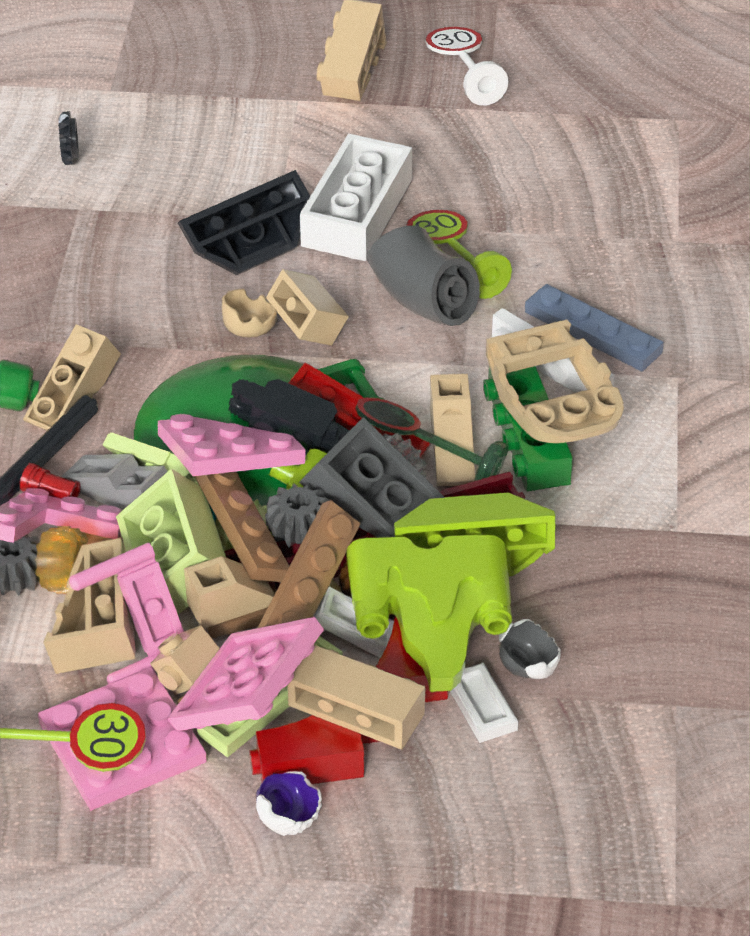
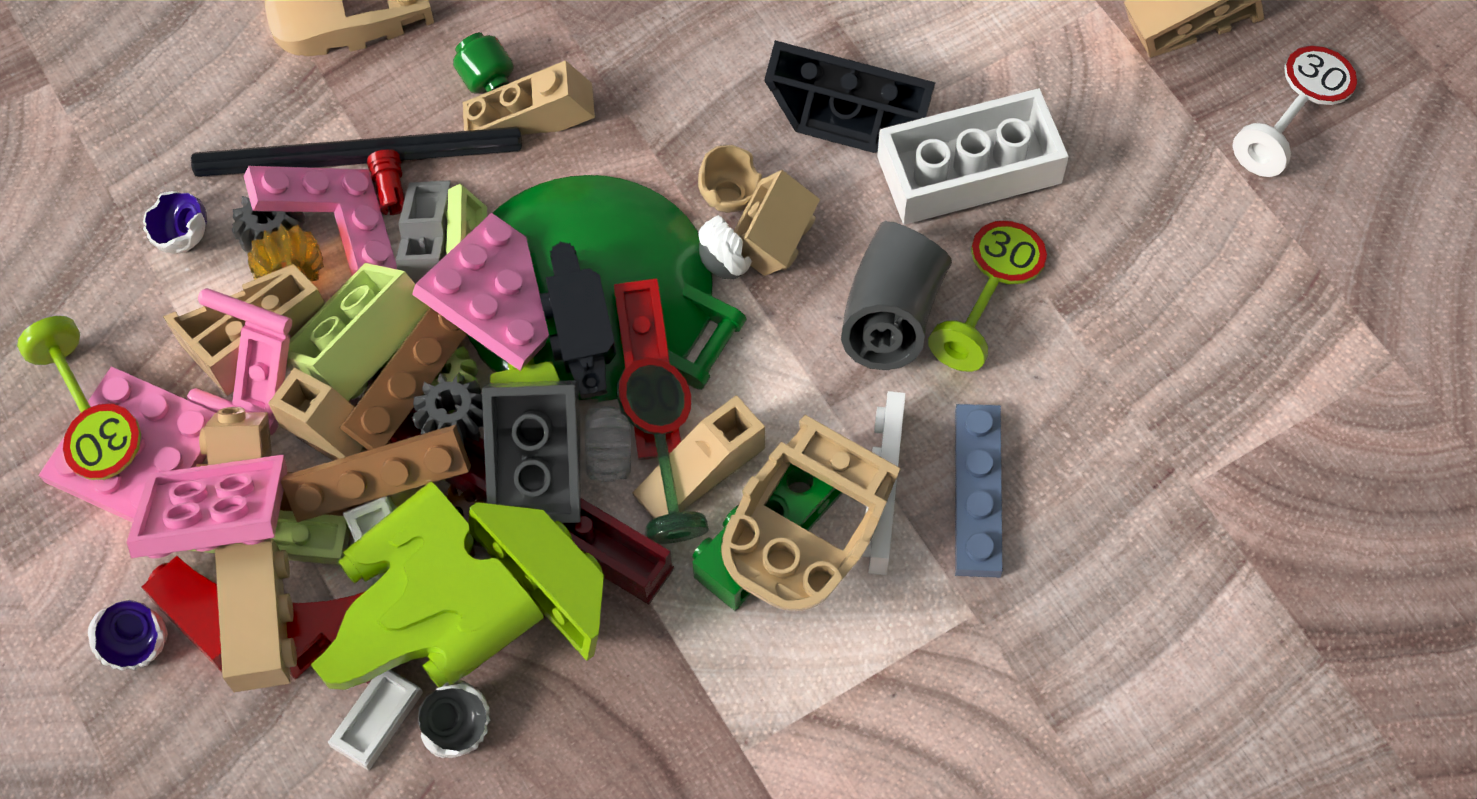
camera: 55 degrees right, 20 degrees up
(301, 338) = (722, 249): none -> white hair

